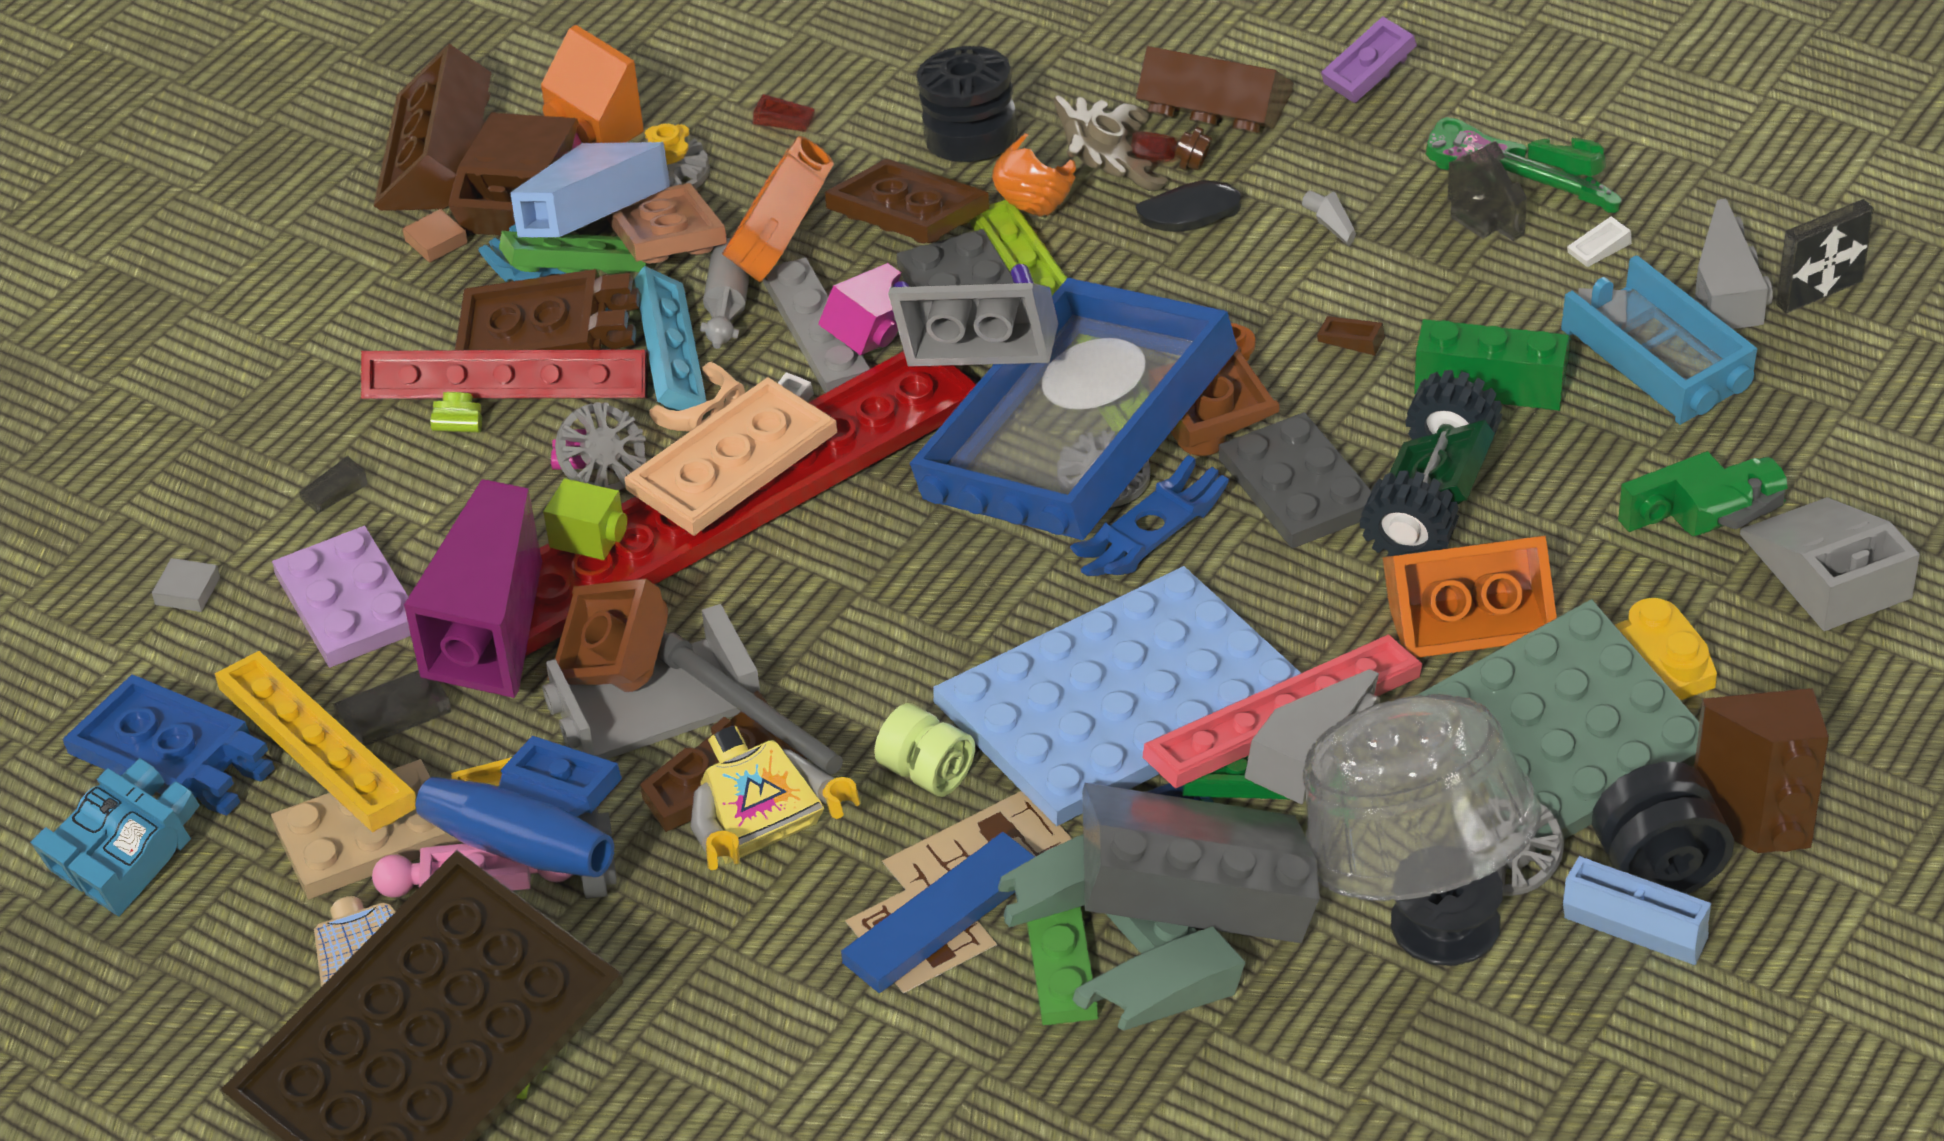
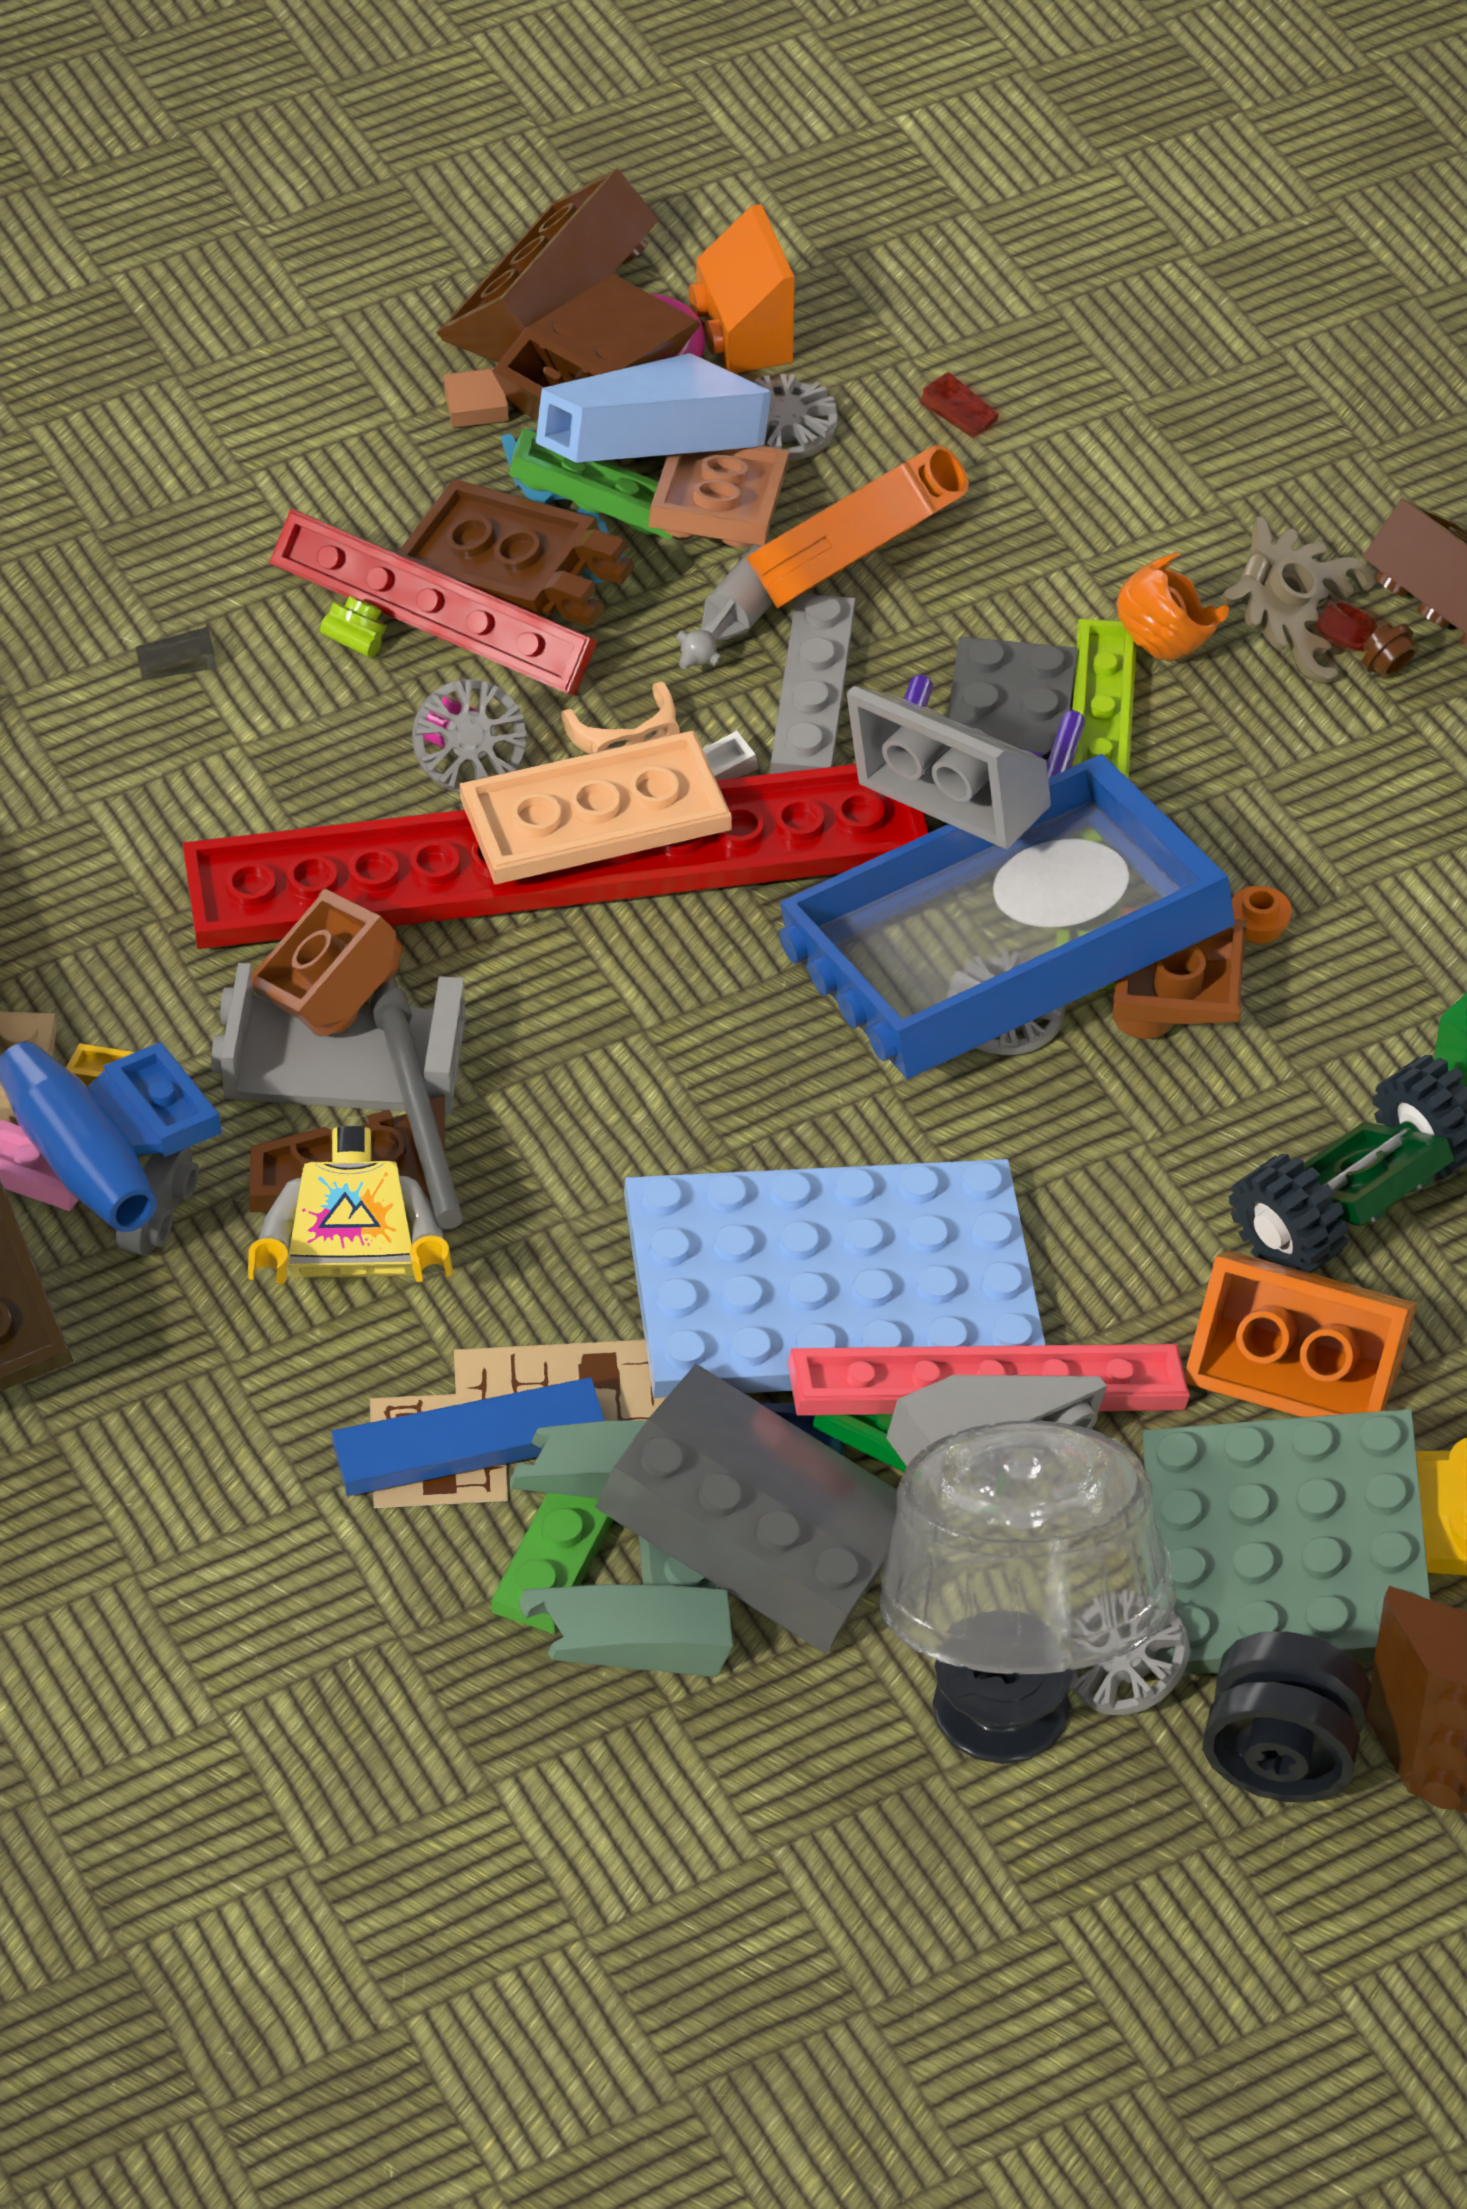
camera: 25 degrees right, 5 degrees up
(345, 595) = (105, 791): lavender plate -> none
(392, 708) = (68, 941): clear smoke plate -> none
(479, 594) = (212, 852): magenta slope -> none
(584, 519) = (385, 814): lime brick -> none
(669, 341) = (634, 637): medium azure plate -> none
(673, 139) = (793, 390): yellow plate -> none
(861, 310) = (873, 669): dark pink arch -> none
(907, 201) = (1010, 577): reddish brown plate -> none
(924, 749) = (570, 1245): yellowish green wheel -> none
(967, 103) = (1157, 482): black wheel -> none
(1165, 502) = (1050, 1083): blue piece -> none
(1190, 206) = (1336, 720): black arm -> none
(1296, 479) = (1213, 1108): dark grey plate -> none
(1352, 334) = (1412, 962): reddish brown piece -> none
(1636, 910) = (1203, 1791): light blue piece -> none

